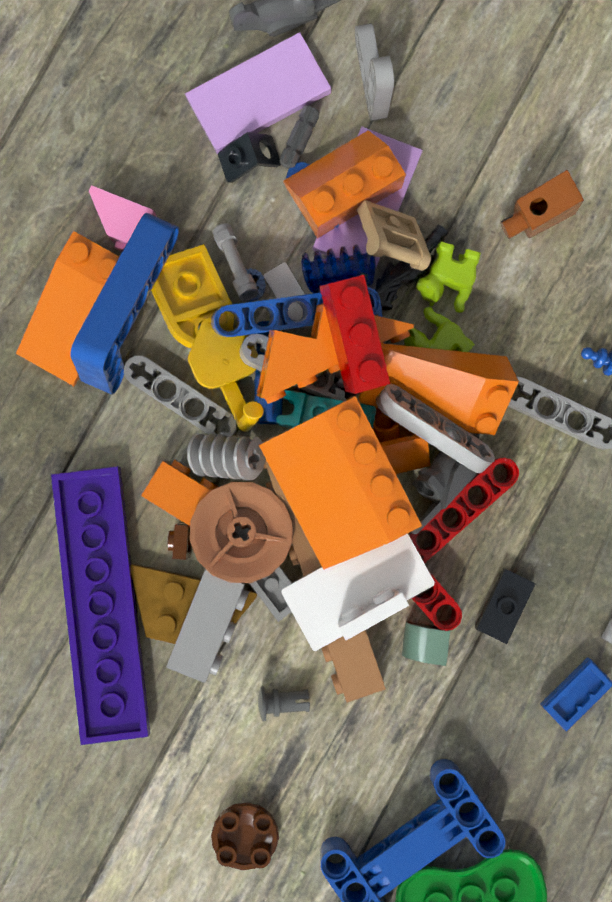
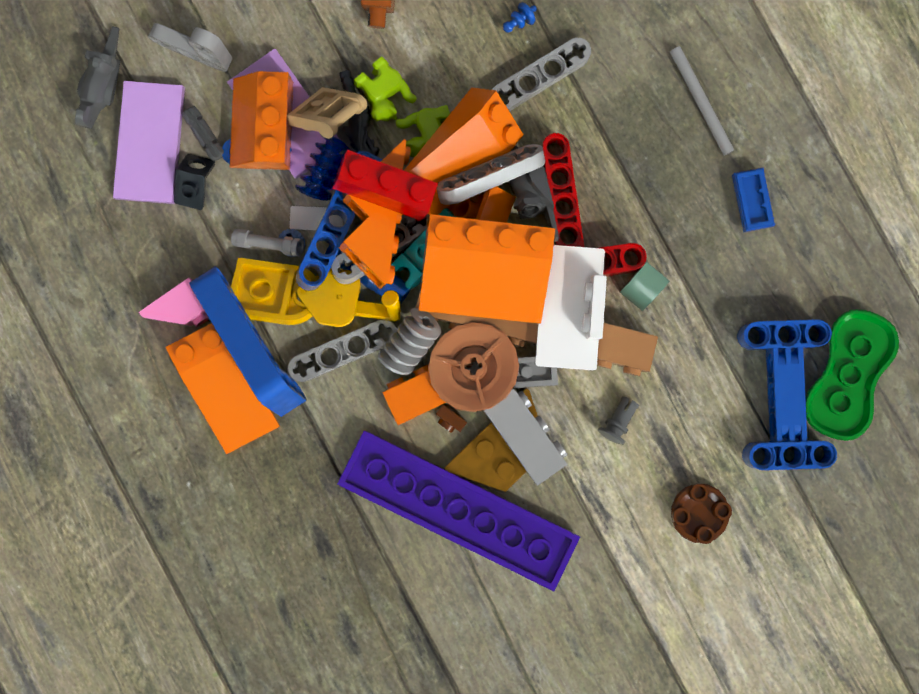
camera: 60 degrees left, 0 degrees up
(505, 606) = (655, 210): black plate -> none

